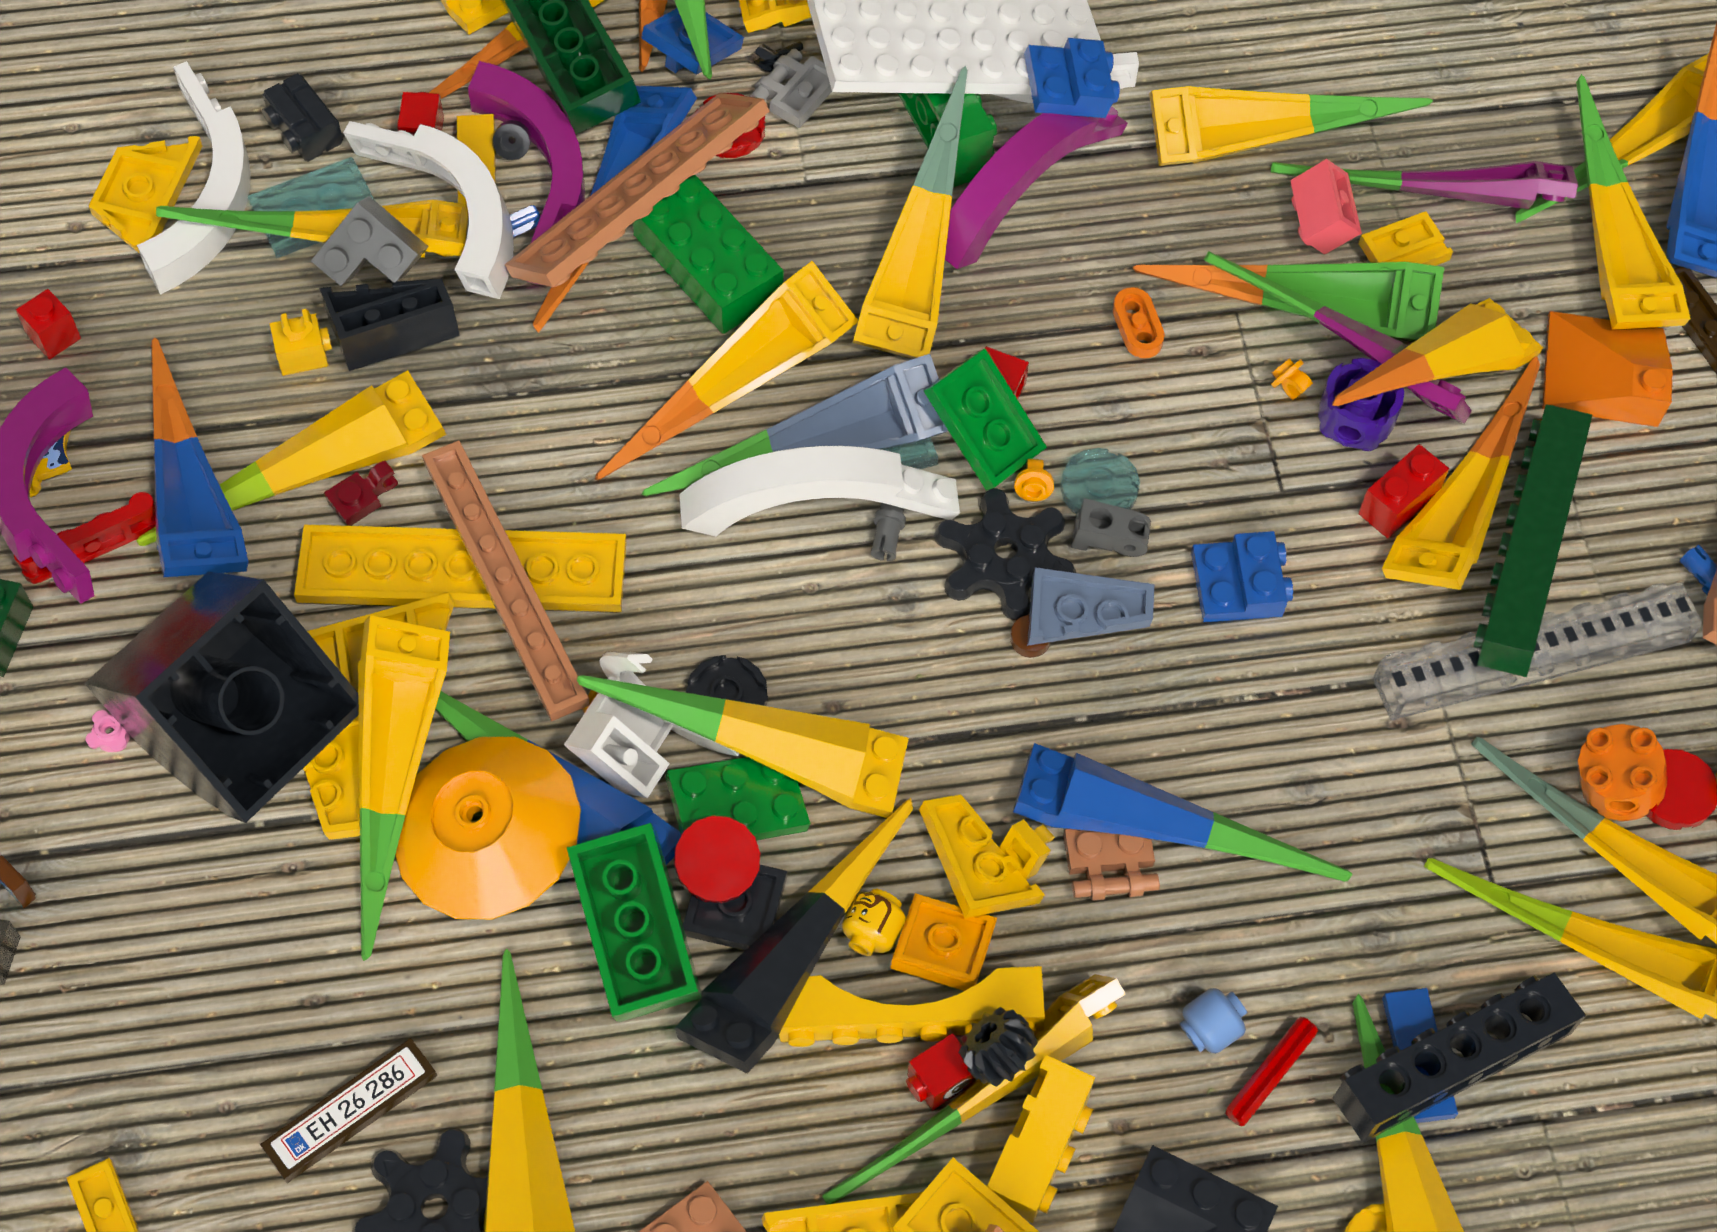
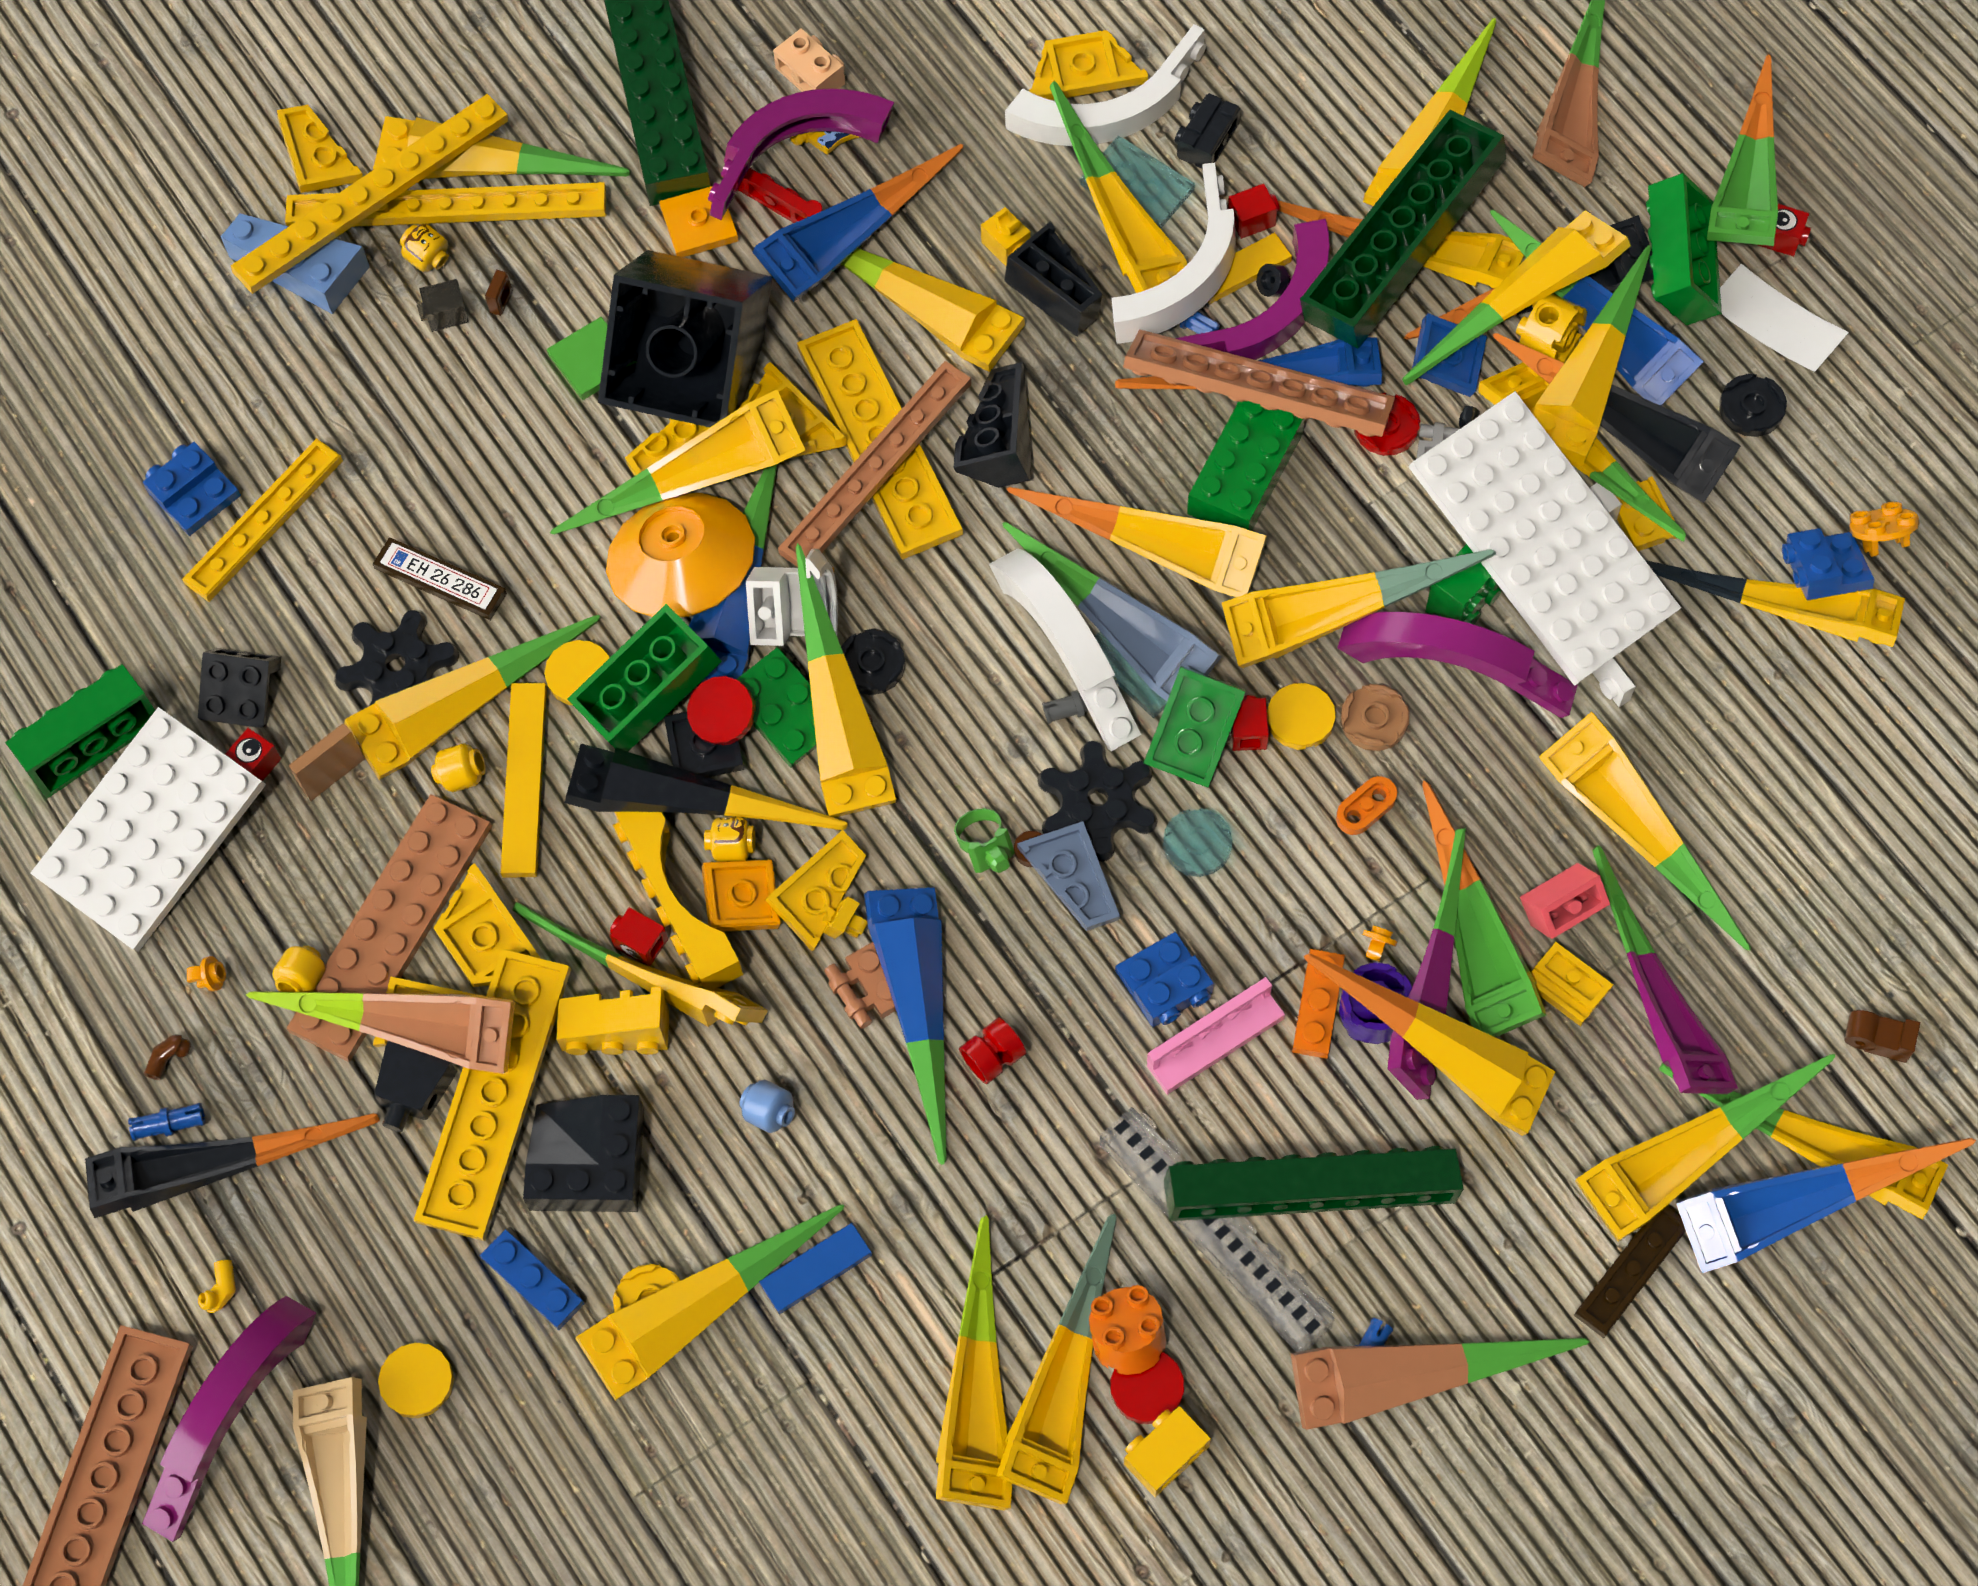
camera: 70 degrees right, 5 degrees up
(48, 324) = (931, 73): red brick -> none
(62, 633) = (691, 225): none -> light orange plate
(161, 822) = (581, 357): none -> bright green tile
(357, 496) = (905, 340): dark red plate -> none
(373, 236) = (1104, 232): brick -> none
(530, 453) = (998, 433): none -> black wedge
(566, 1002) = (571, 666): none -> yellow tile
(619, 1187) = (458, 767): none -> yellow head
(671, 1121) = (523, 780): none -> yellow tile
(998, 1046) = (656, 954): black gear -> none
(1010, 329) = (1301, 716): none -> yellow tile
(1024, 668) = (991, 854): none -> bright green piece
(1034, 482) = (1167, 790): light orange plate -> none
(1043, 277) = (1374, 717): none -> medium nougat tile
(1072, 78) = (1544, 638): blue plate -> none
(1111, 529) = (1154, 864): dark grey leg -> none
(1254, 773) = (991, 1051): none -> red wheel
(1271, 1071) = (751, 1166): red axle -> none
(1324, 457) = (1317, 1009): none -> orange plate
(1325, 562) = (1214, 1036): none -> bright pink fence
(1374, 1110) = (823, 1309): black brick -> none
(1403, 491) = (1311, 1070): red brick -> none
(1452, 526) = (1300, 1120): yellow plate -> none
(1566, 40) = (1882, 1035): none -> reddish brown leg
(1607, 371) = (1536, 1194): orange slope -> none

